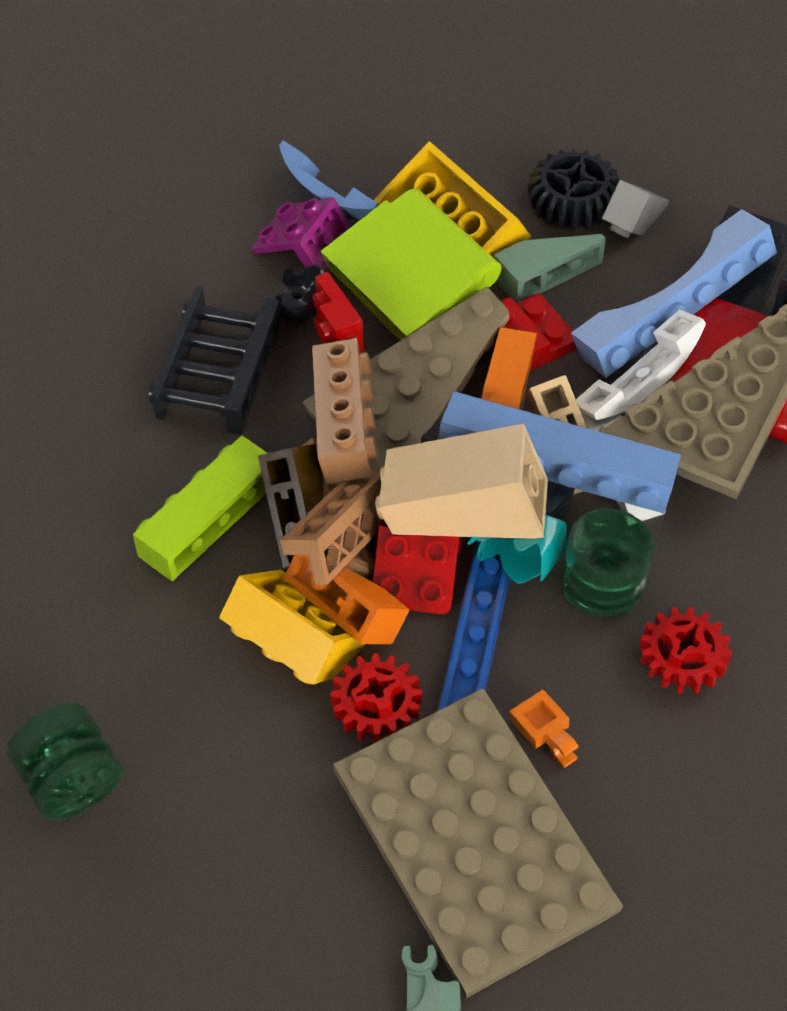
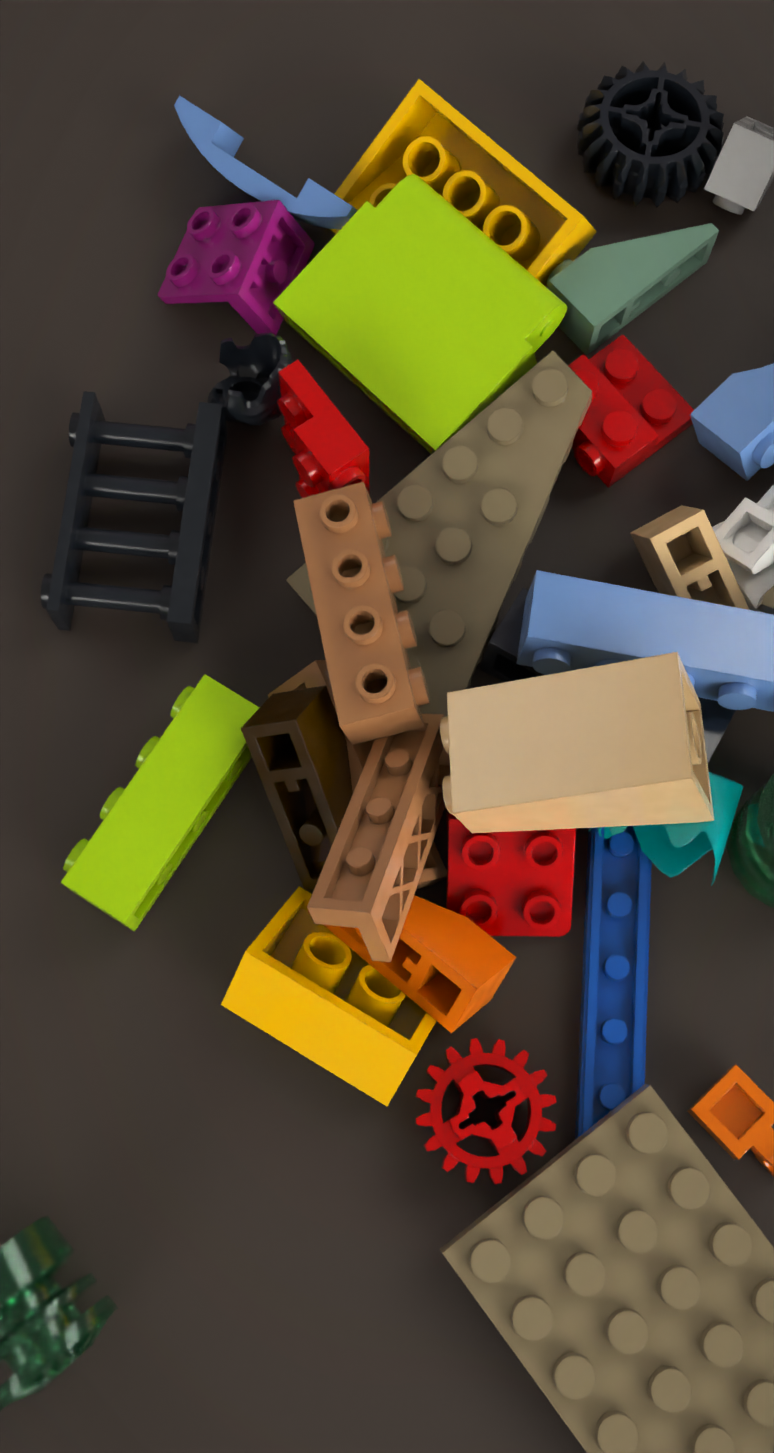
camera: 10 degrees left, 20 degrees up
(510, 368) = (606, 505): orange slope -> none

